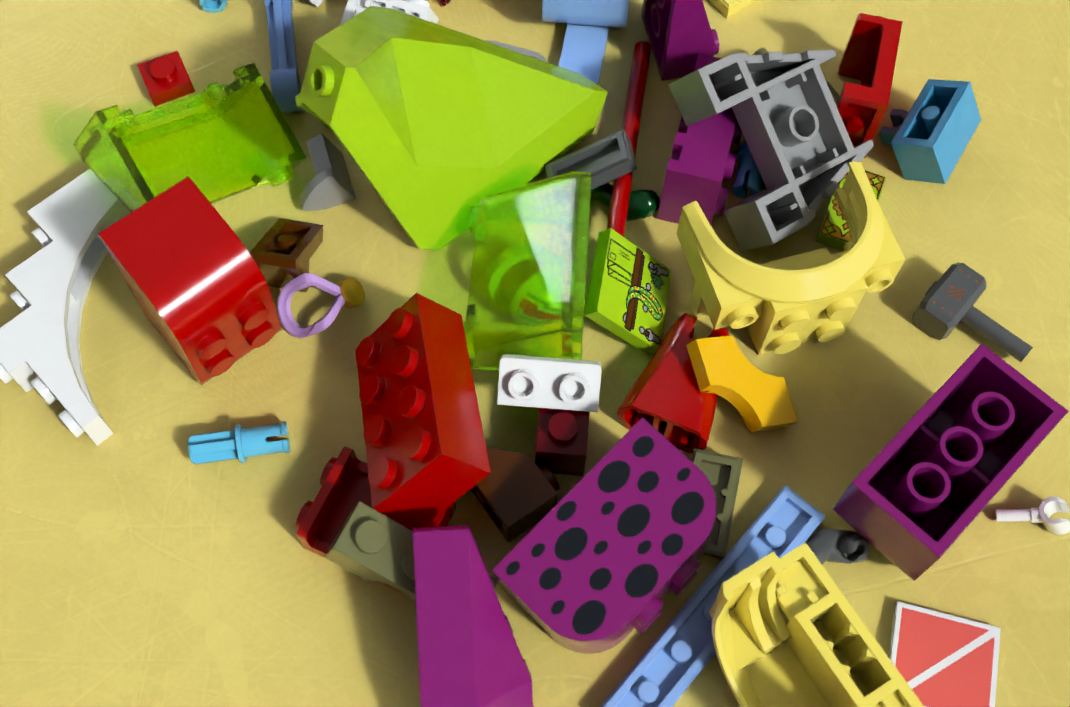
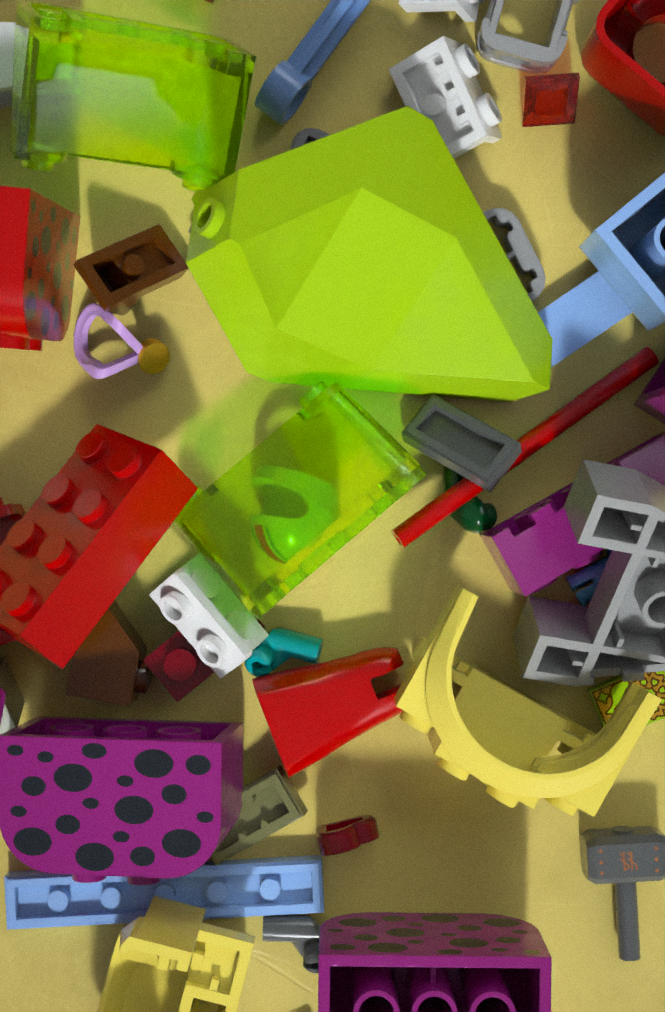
camera: 50 degrees right, 25 degrees up
(614, 383) = (281, 646): none -> teal arm
(628, 291) = (364, 592): lime tile -> none
(756, 395) = (366, 738): yellow tile -> none
(779, 453) = (346, 834): none -> dark red tile

